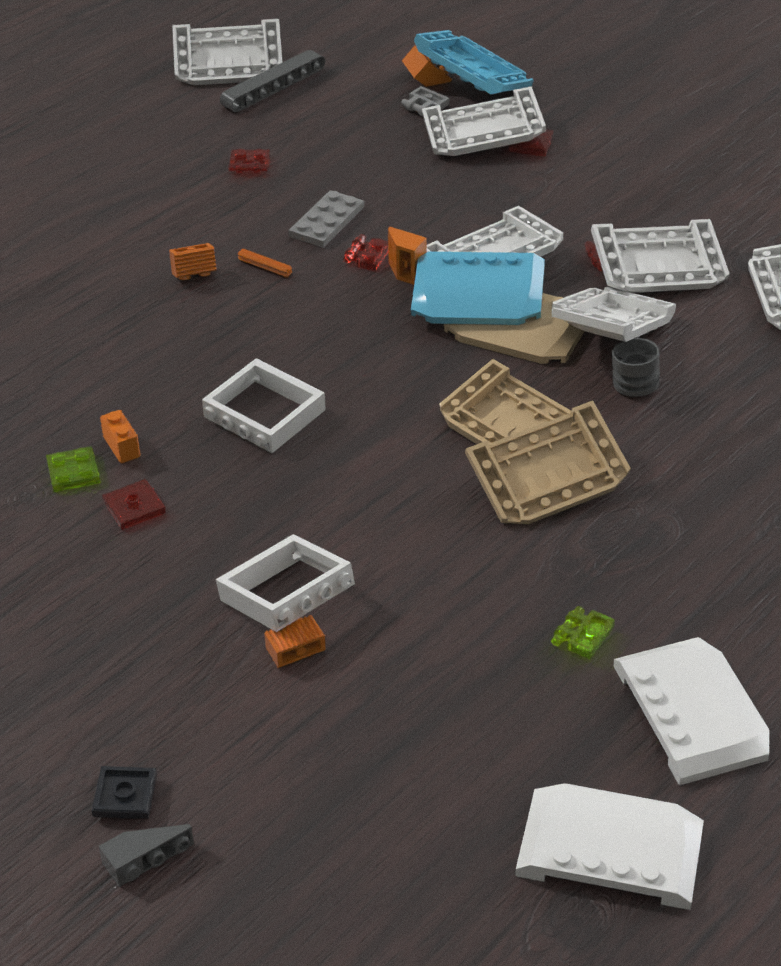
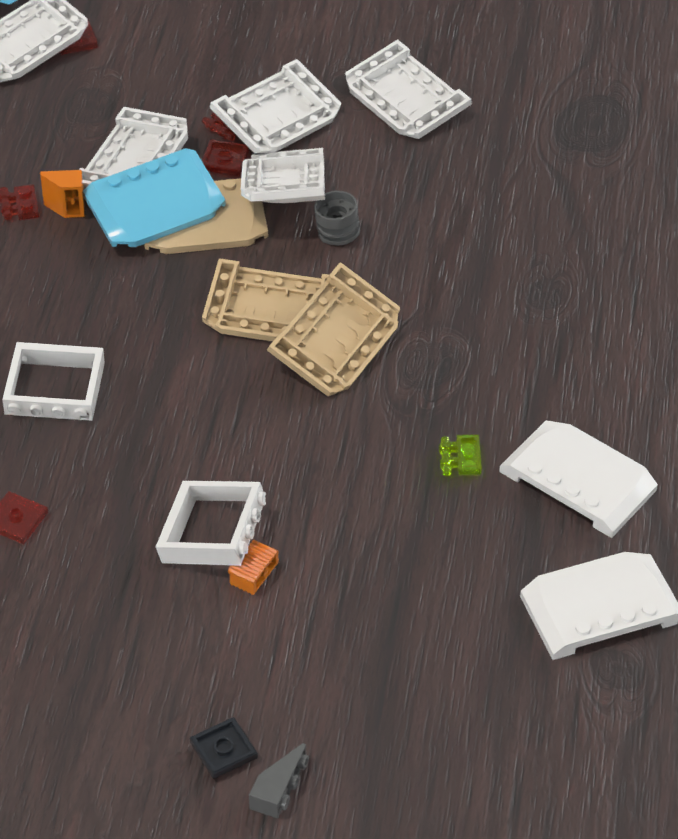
camera: 35 degrees left, 5 degrees up
(577, 278) = (225, 157): none -> clear red plate

